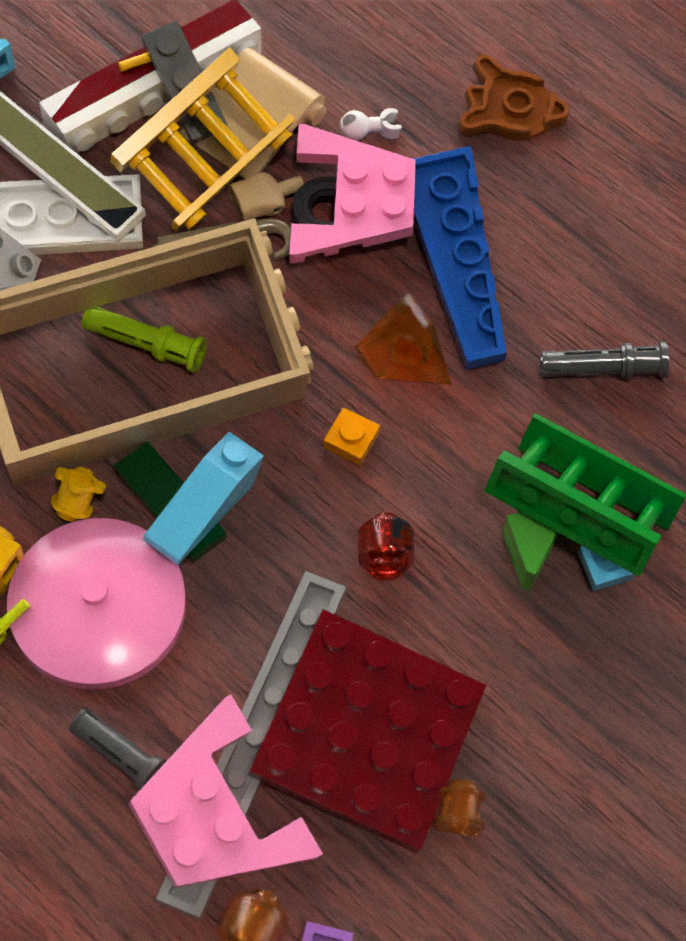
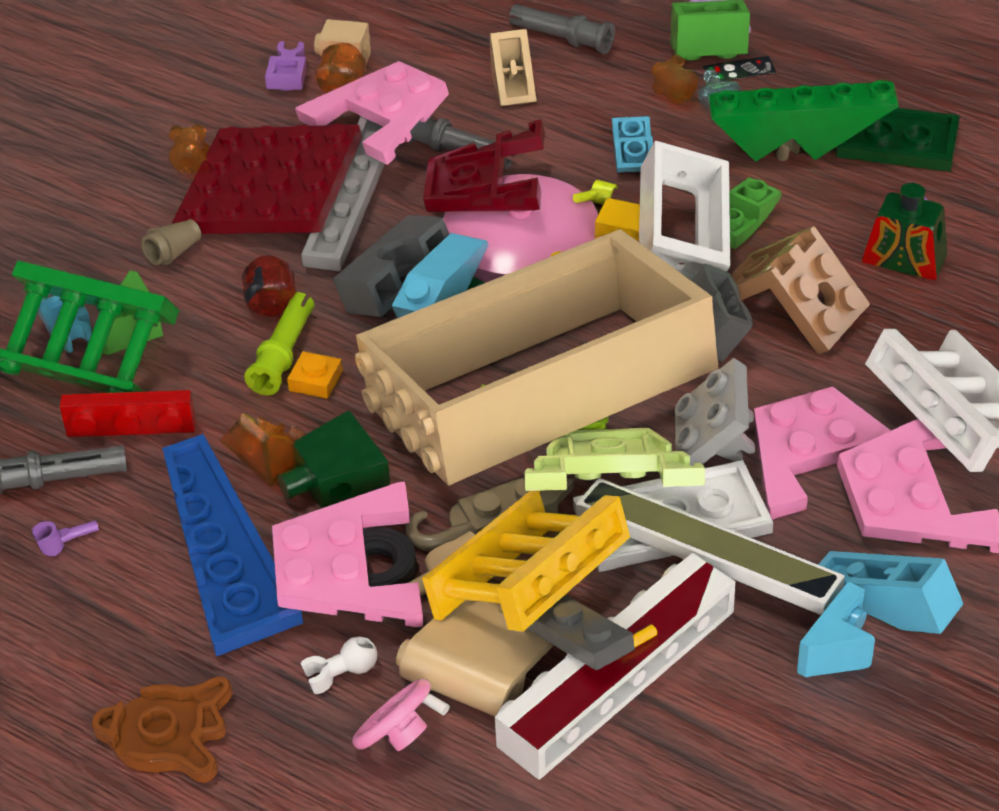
camera: 175 degrees right, 20 degrees down
(33, 874) = (512, 68): none -> tan slope
(78, 244) = (619, 451): none -> yellowish green wing
(139, 656) = (473, 176): none -> dark red wing
(279, 523) = (373, 279): none -> dark grey arch
(320, 56) = (395, 718): none -> bright pink piece
(345, 306) = (335, 463): none -> dark green torso
(388, 460) = (276, 354): none -> lime pin
(488, 651) = (169, 241): none -> dark tan cone
(520, 403) = (128, 413): none -> red plate
(603, 294) = (52, 540): none -> medium lavender hand

